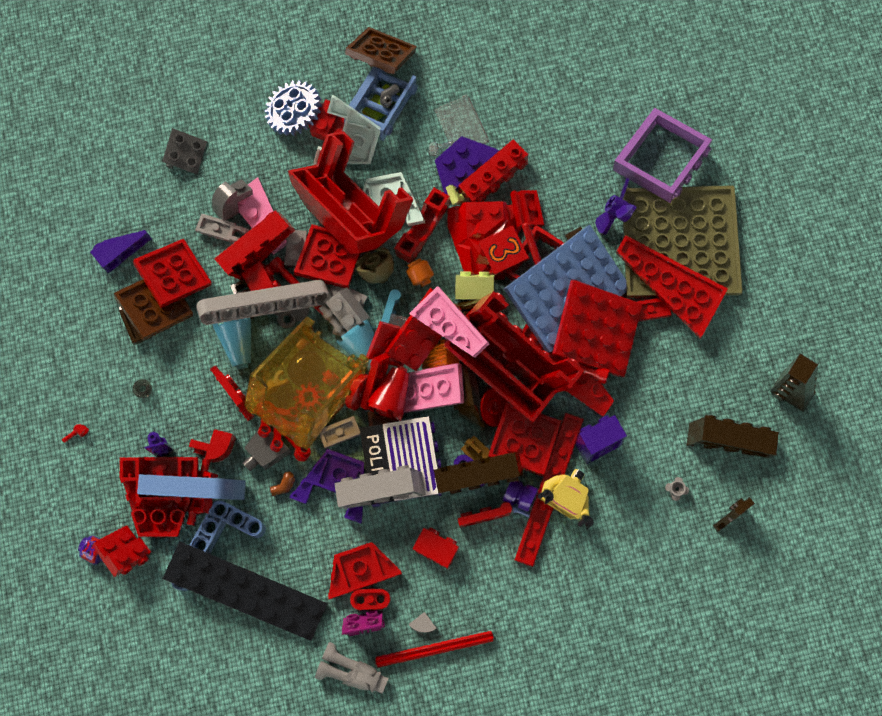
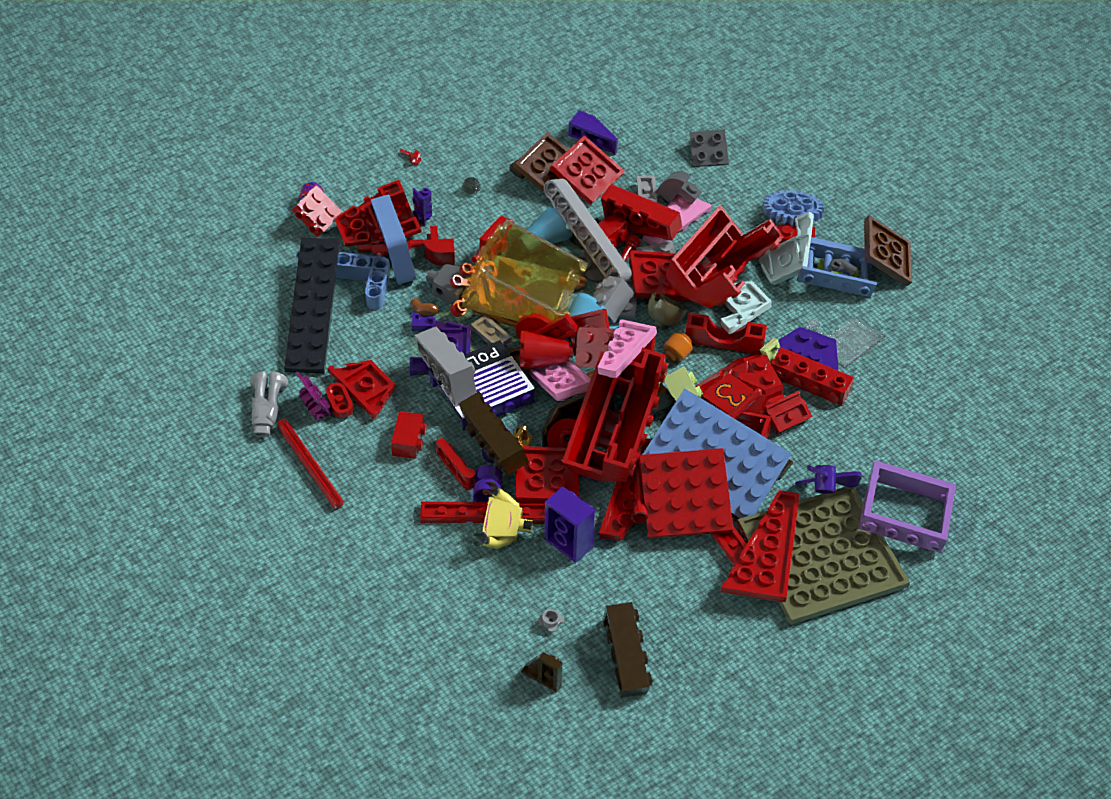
camera: 60 degrees right, 25 degrees down
(423, 624) = (331, 448): light grey tile -> none
(797, 383) = (707, 678): dark brown wedge -> none

